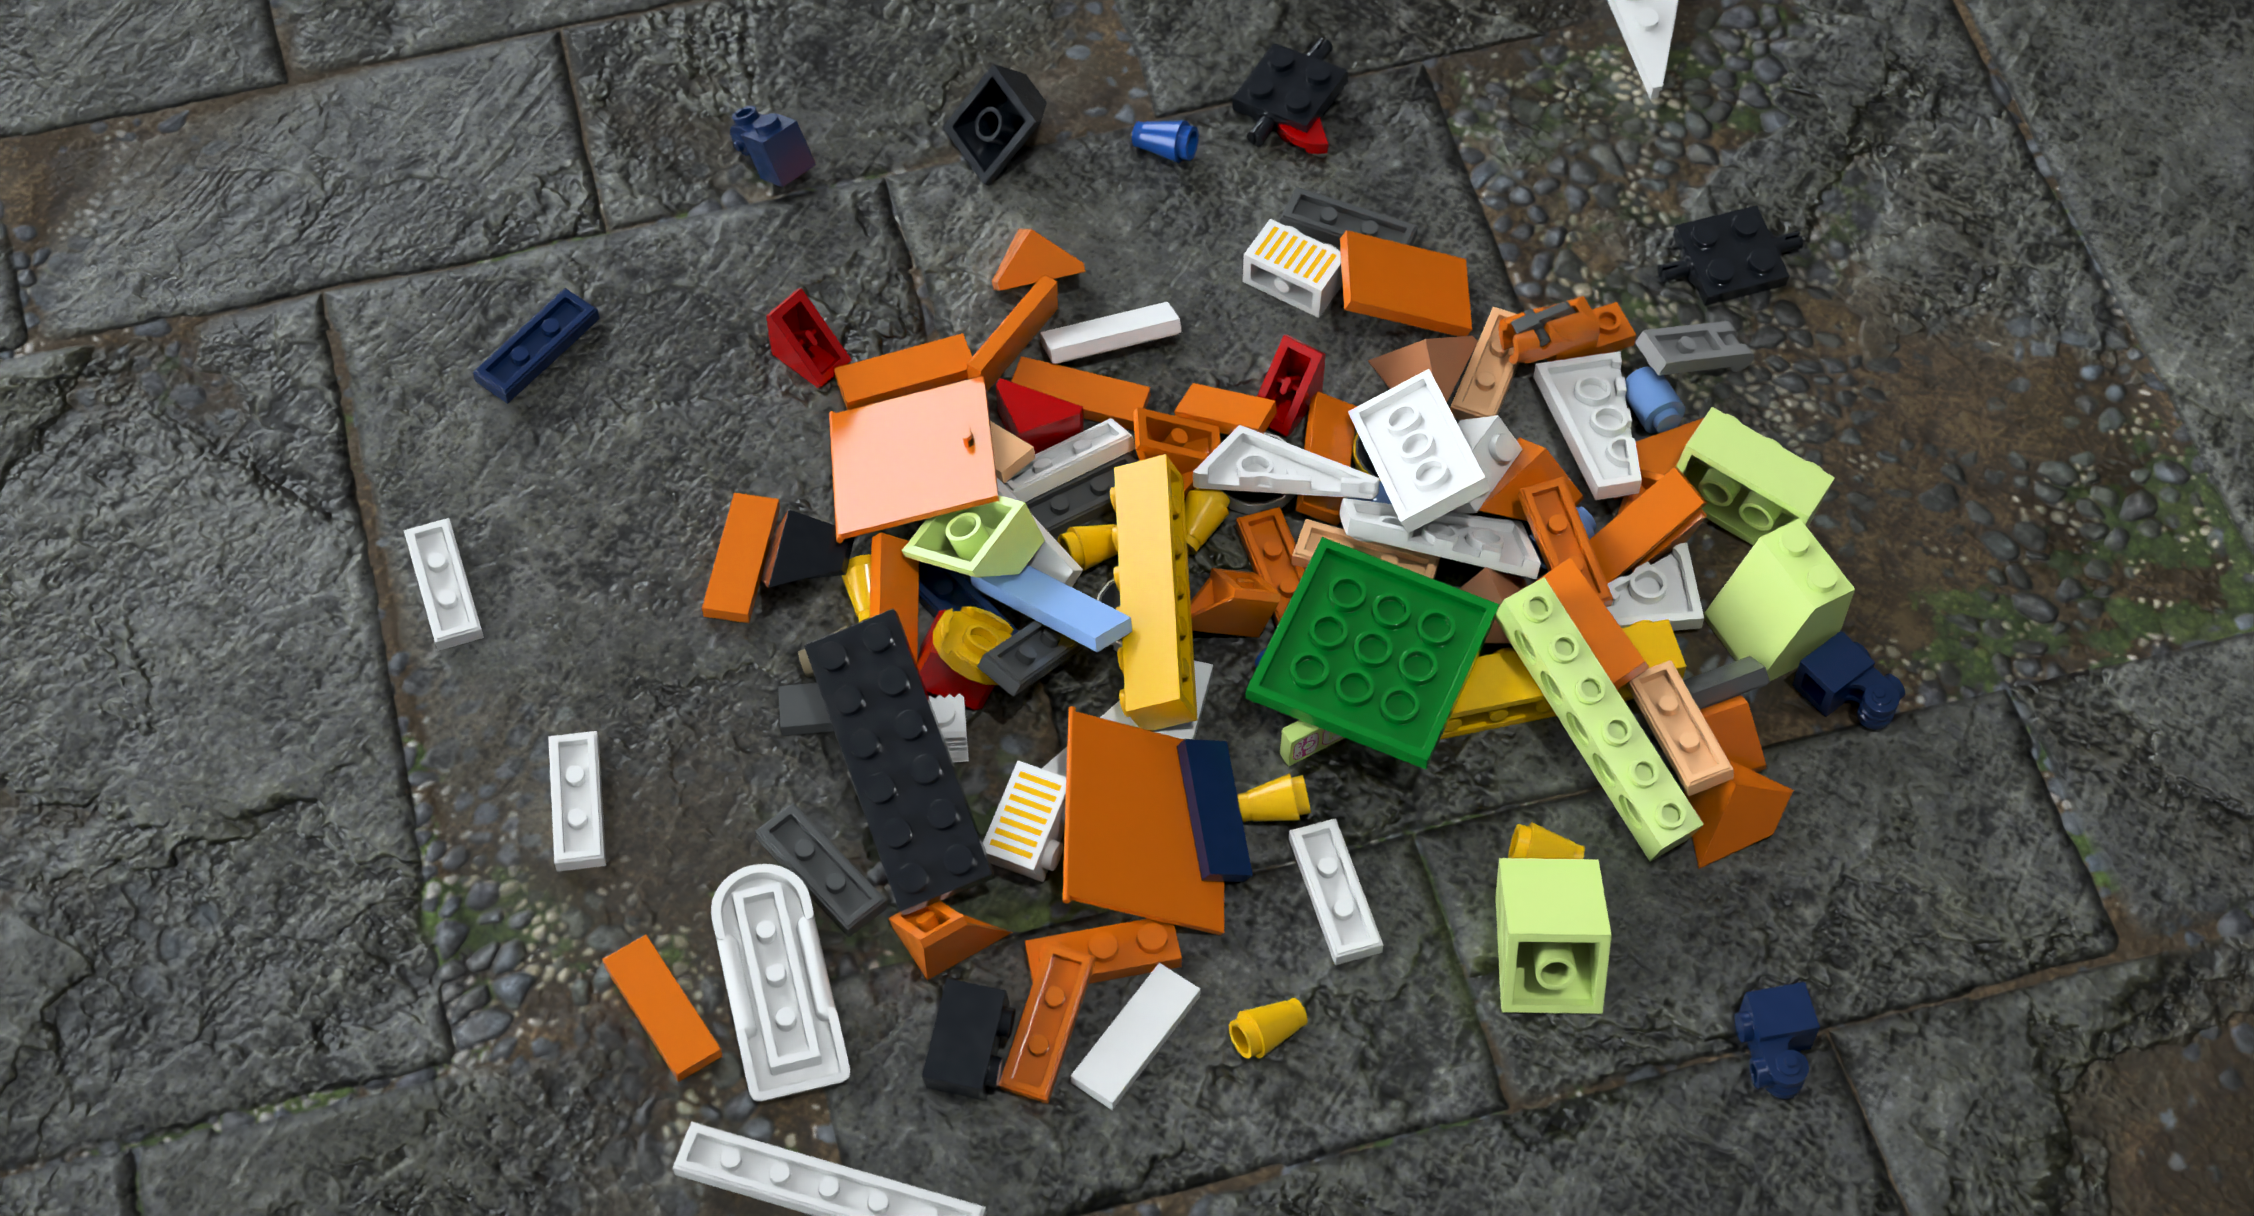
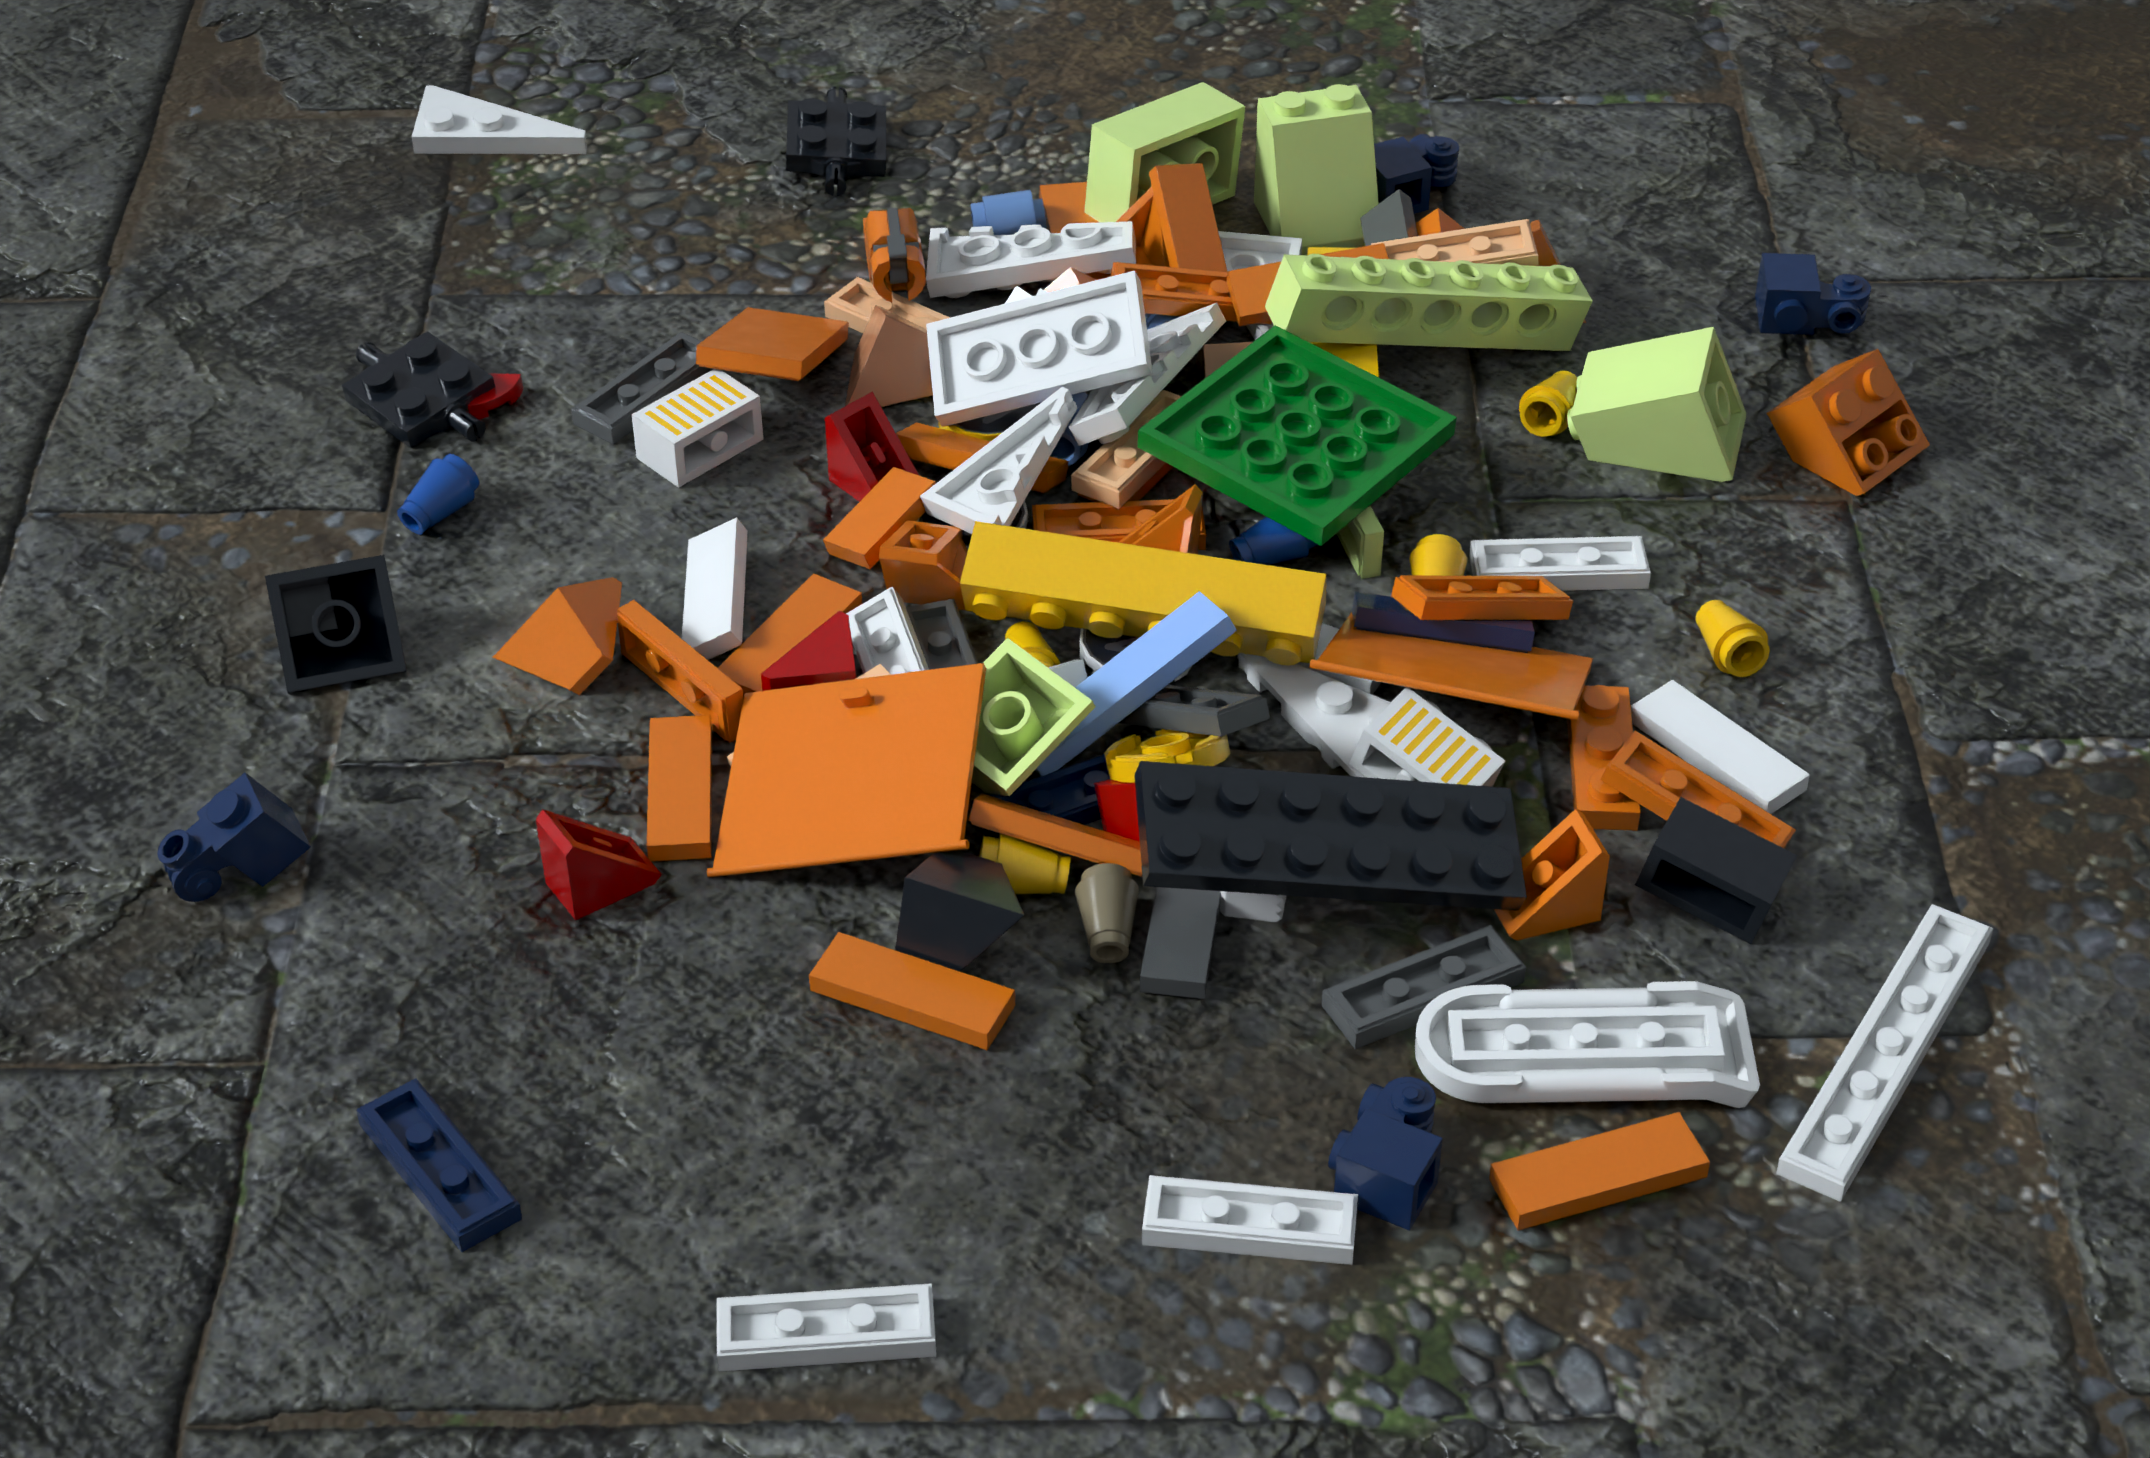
camera: 75 degrees left, 15 degrees down
(632, 861) = (1390, 1152): none -> dark blue brick
(1242, 831) = (1481, 597): none -> orange tile
(1588, 1092) = (1850, 424): none -> orange slope
(1694, 348) = (965, 170): light grey plate -> none

